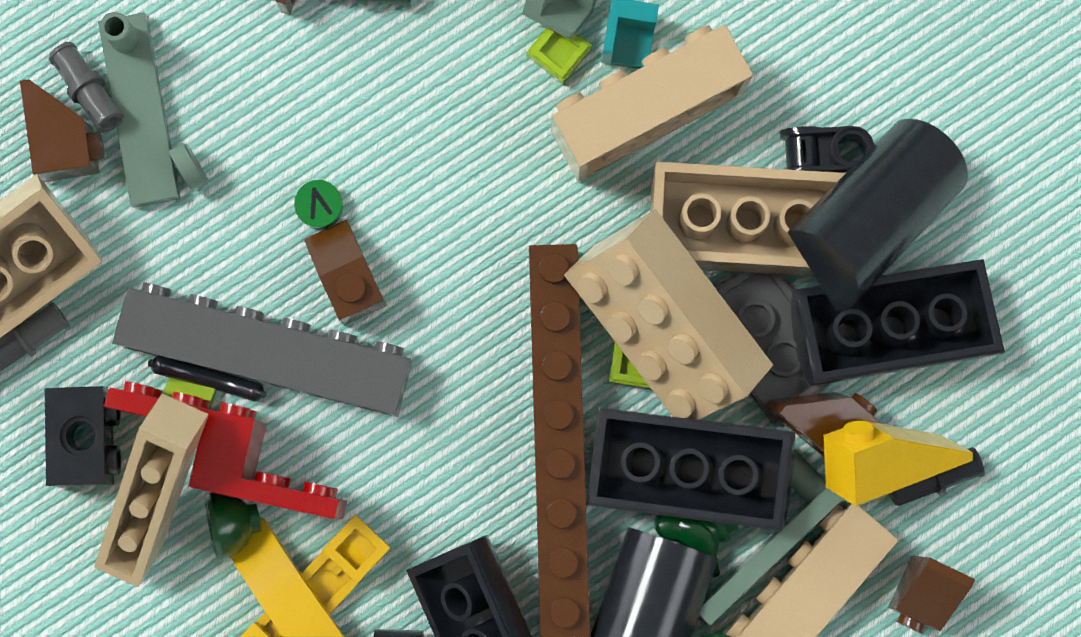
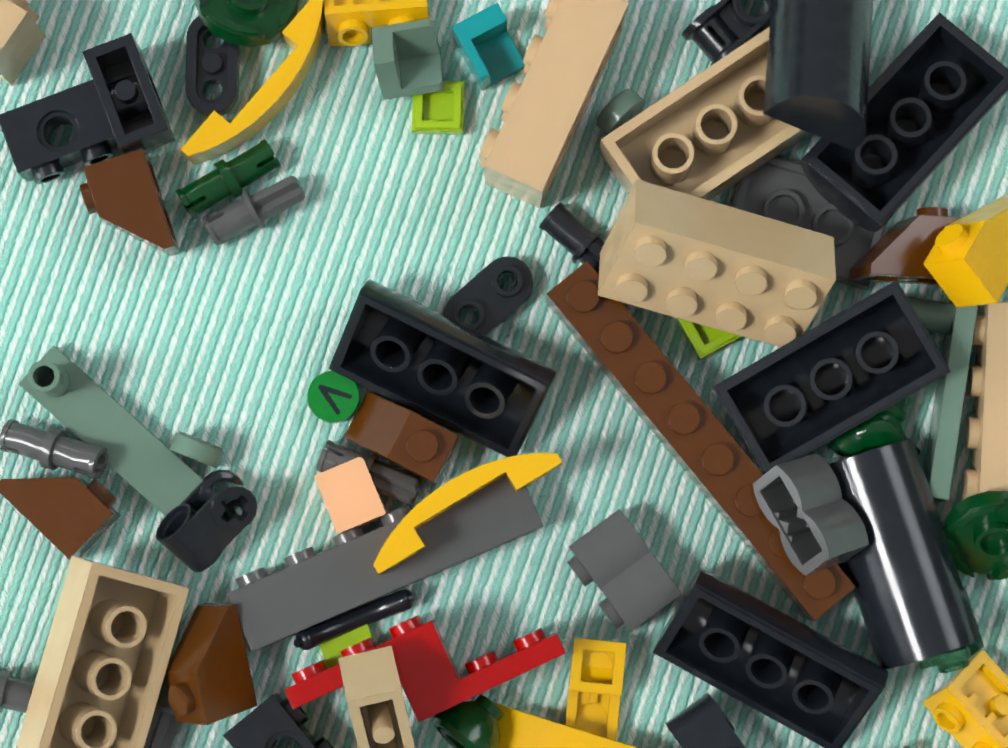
camera: 35 degrees left, 0 degrees up
(73, 333) = (210, 667): none -> reddish brown slope
(151, 223) = (205, 523): none -> black piece
(272, 285) = (350, 495): none -> light nougat panel
(285, 345) = (520, 471): none -> yellow slope
(300, 279) = (386, 478): none -> dark grey axle
(364, 23) = (253, 210): none -> dark grey axle
(411, 243) = (442, 369): none -> black brick
(430, 494) = (623, 571): none -> dark grey brick
(486, 219) = (488, 298): none -> black plate
(585, 219) = (573, 236): none -> black axle
(595, 556) = (811, 516): none -> dark grey brick
(690, 152) = (619, 110): none -> sand green tile

